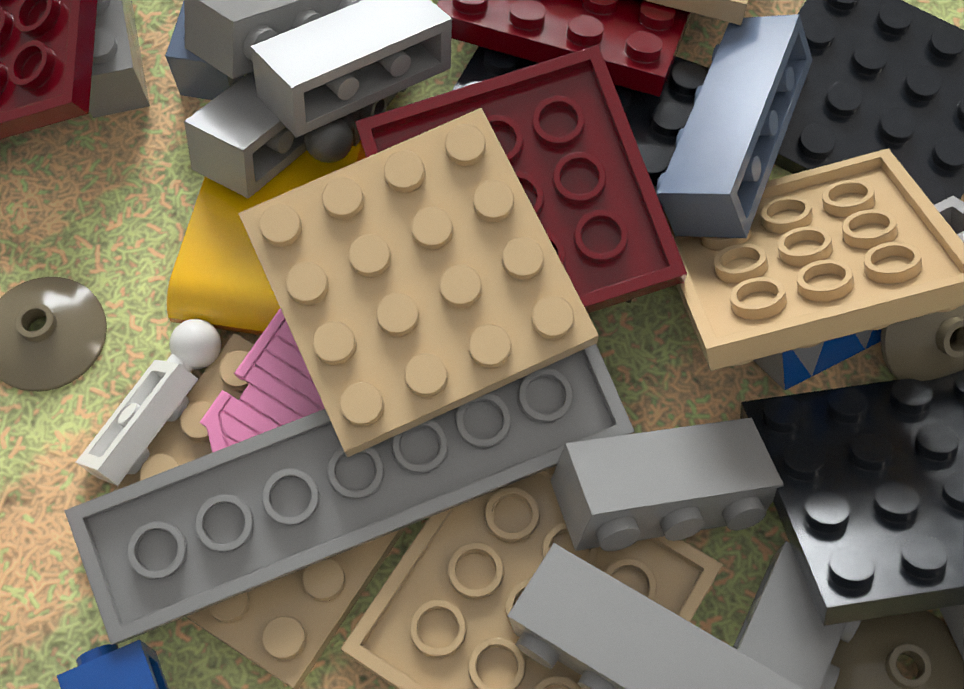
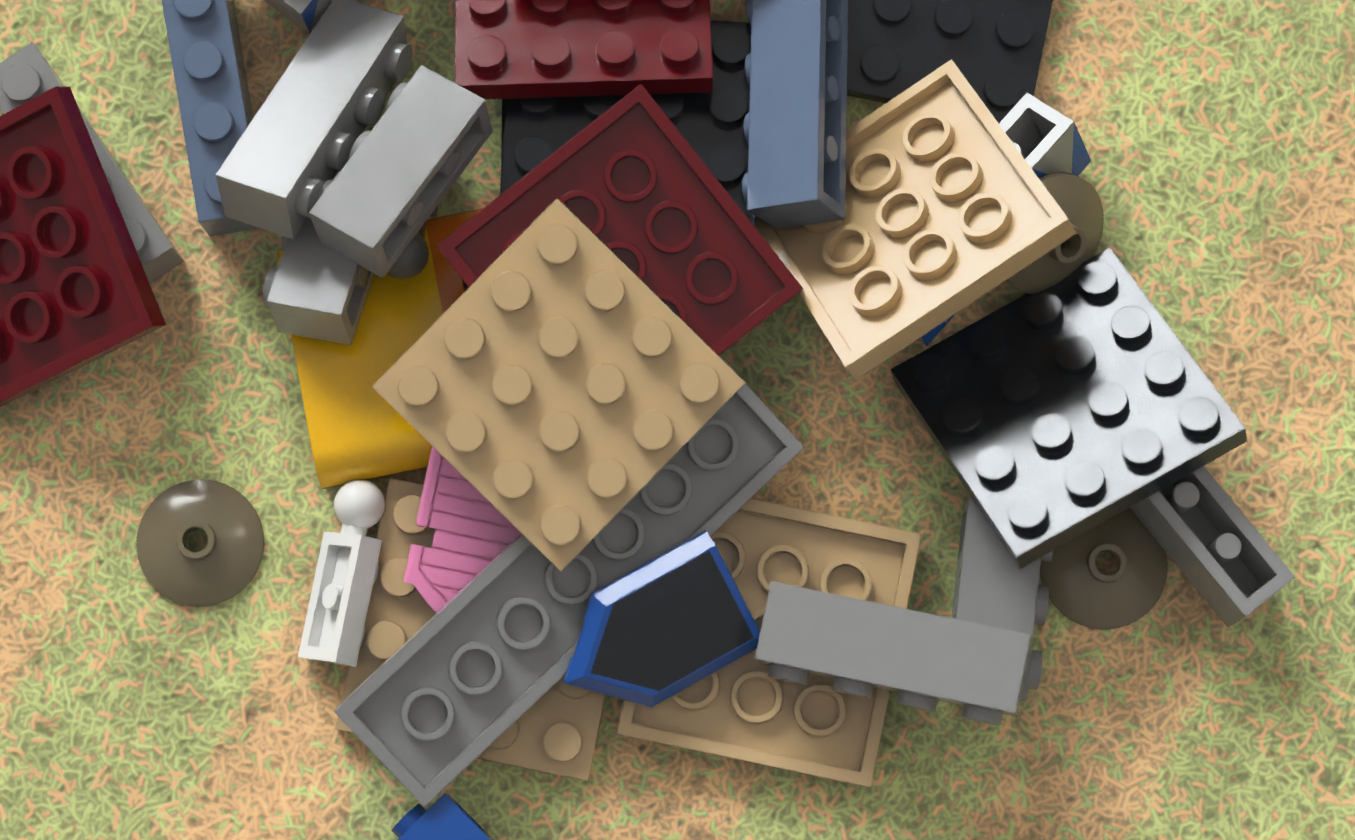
camera: 20 degrees left, 15 degrees up
(426, 554) = (663, 626): none -> black tile
(664, 484) = (847, 484): light grey brick -> none

